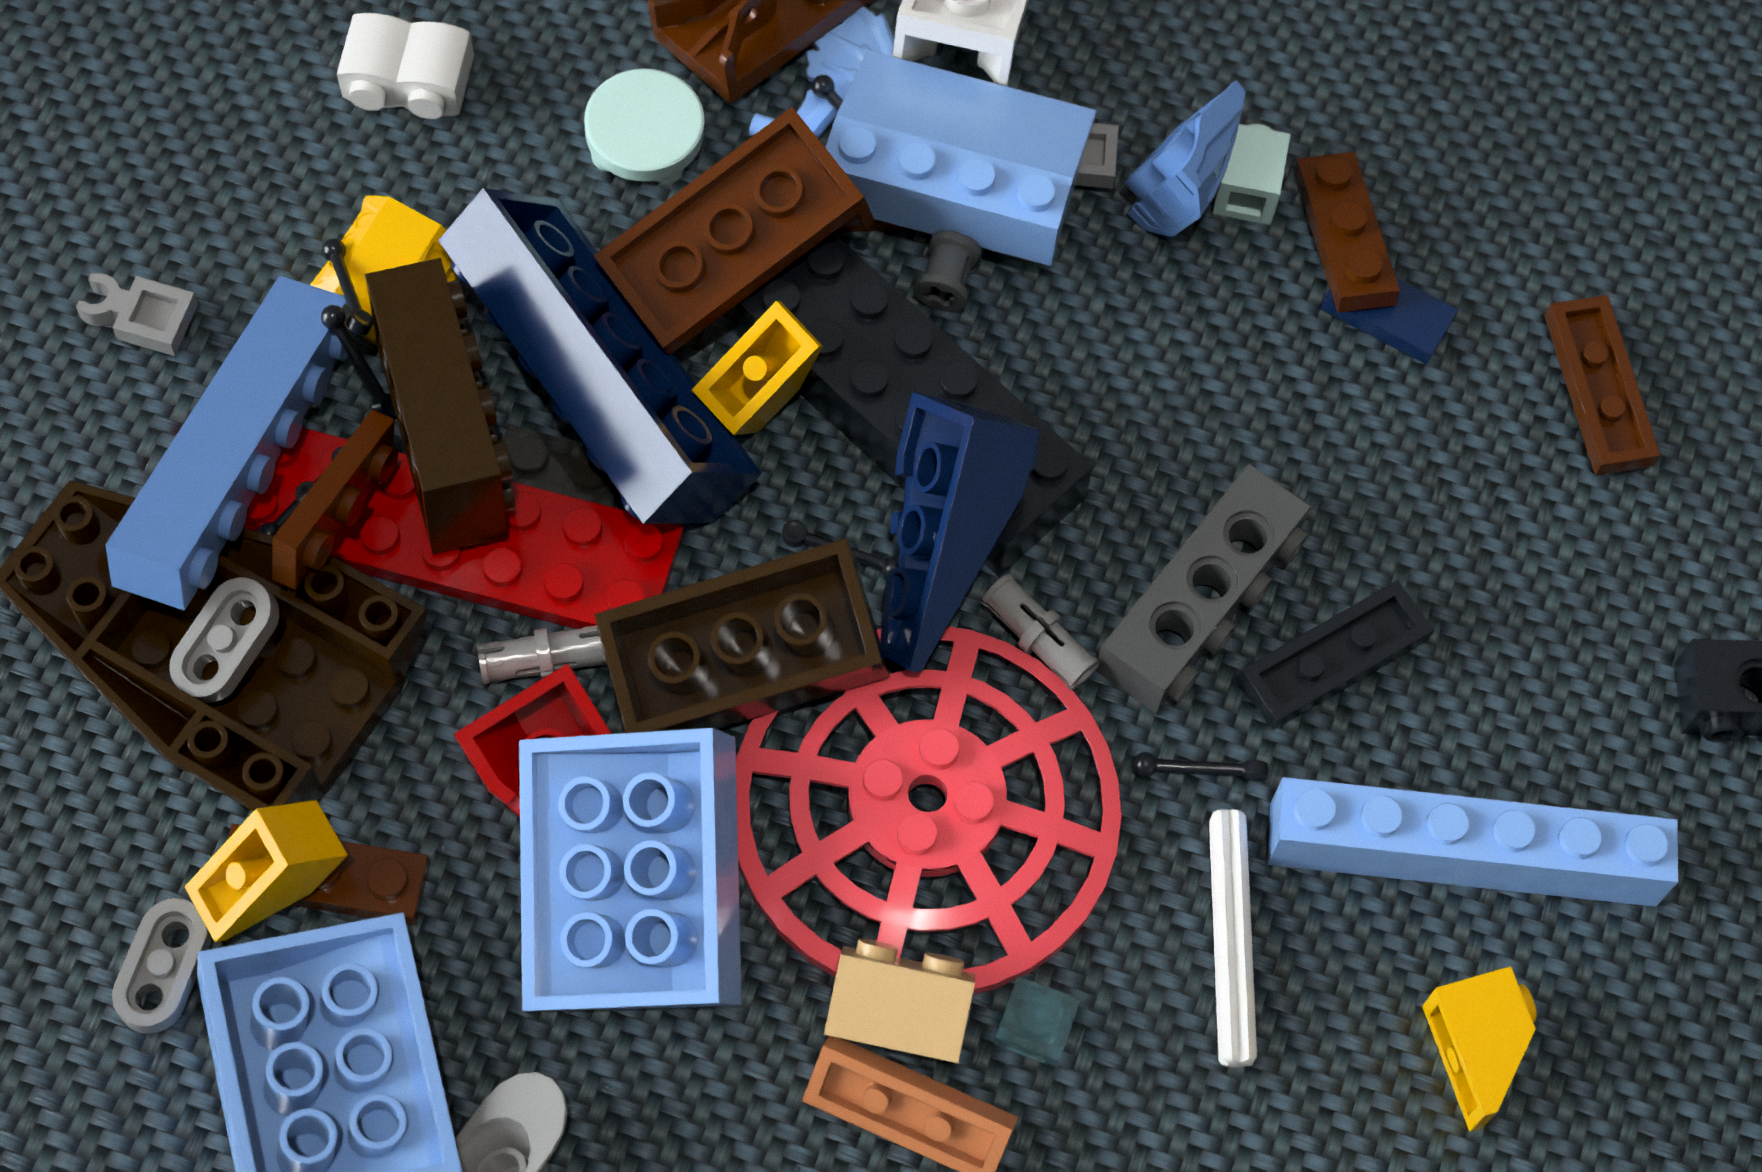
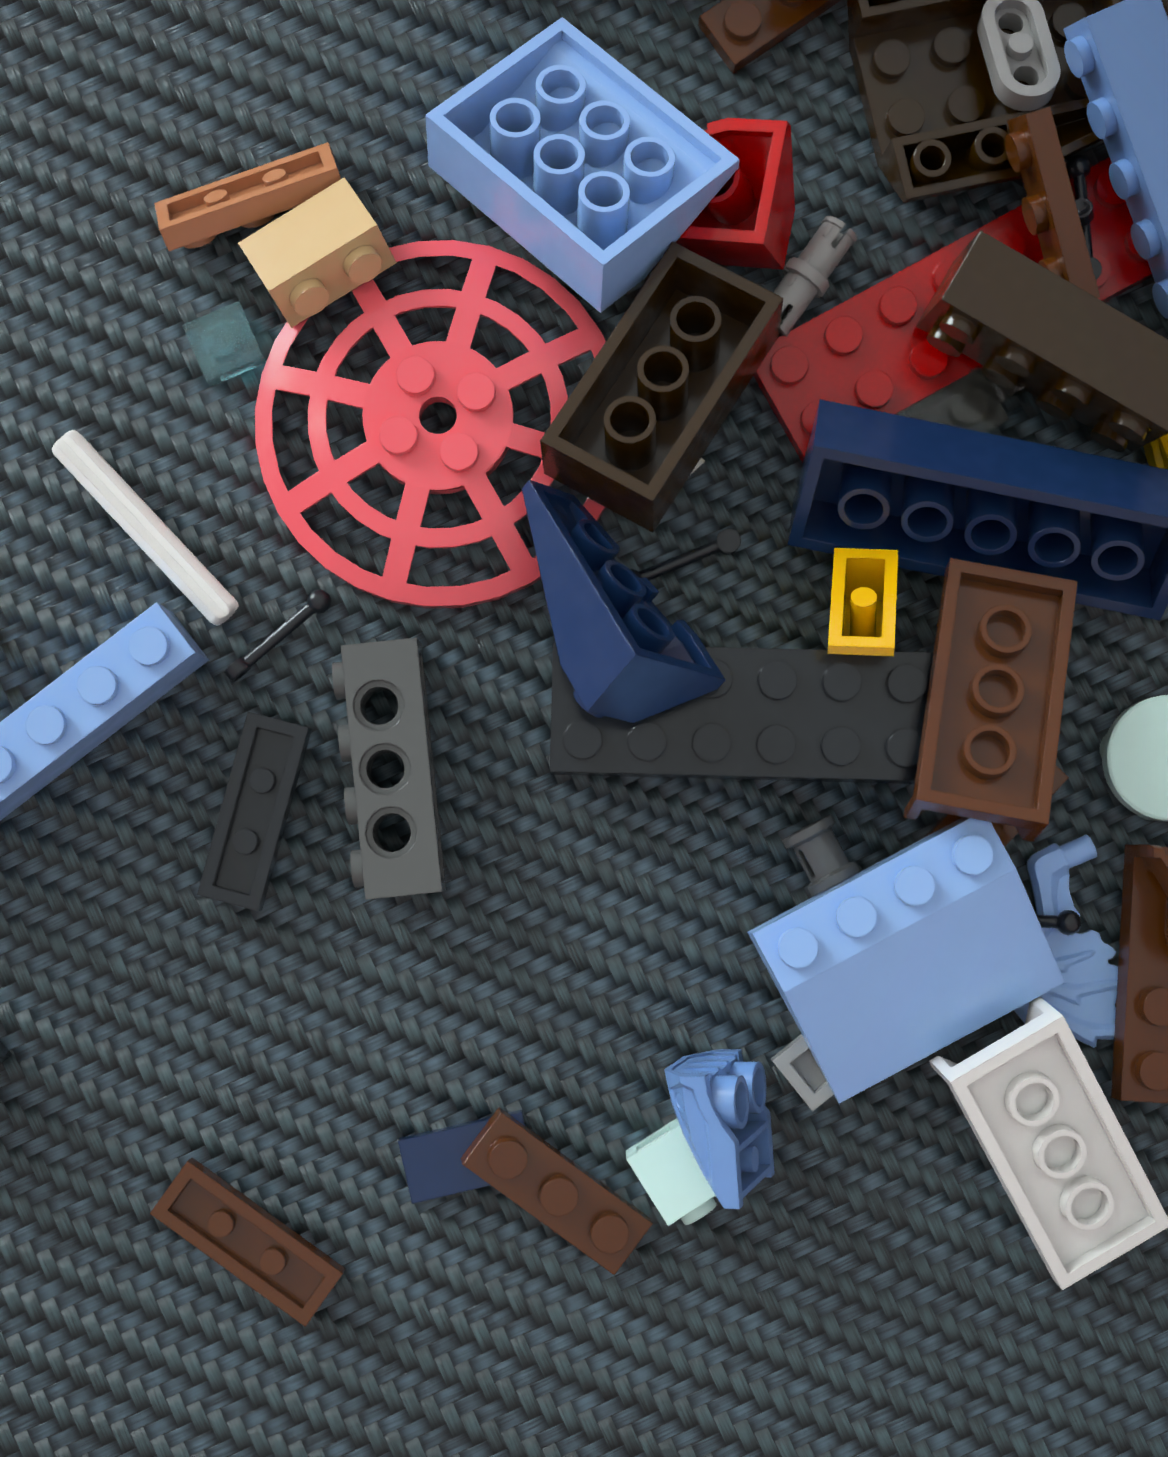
camera: 145 degrees right, 20 degrees up
(1040, 632) = (436, 621): light grey pin -> none

